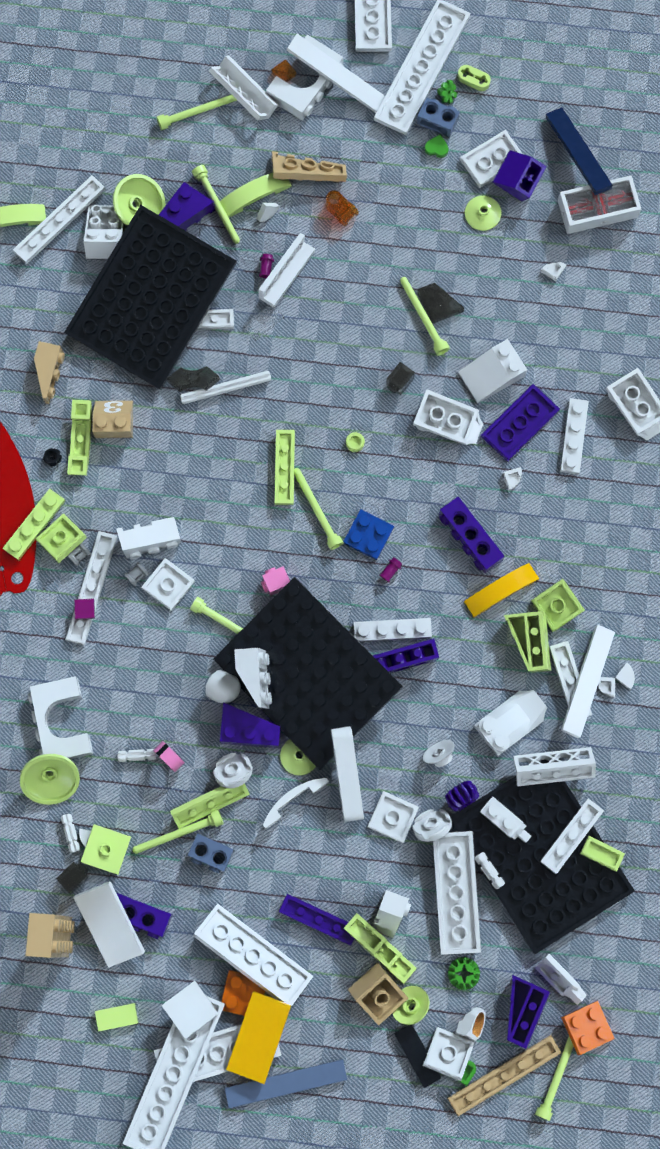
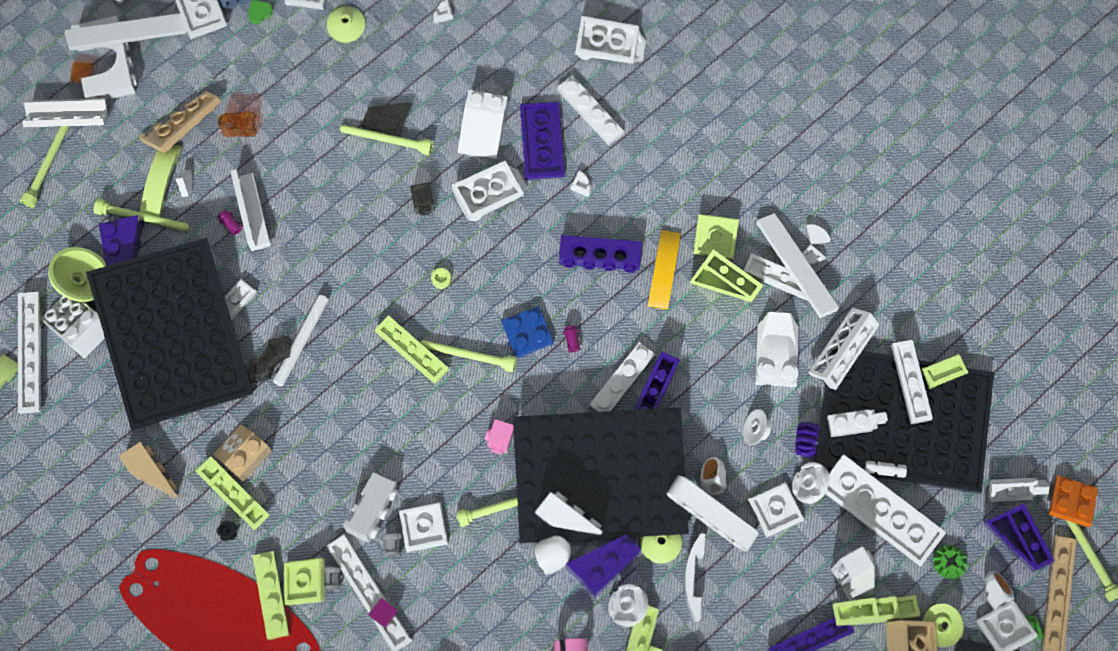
camera: 50 degrees left, 5 degrees down
(377, 752) = (713, 476): none -> white rock

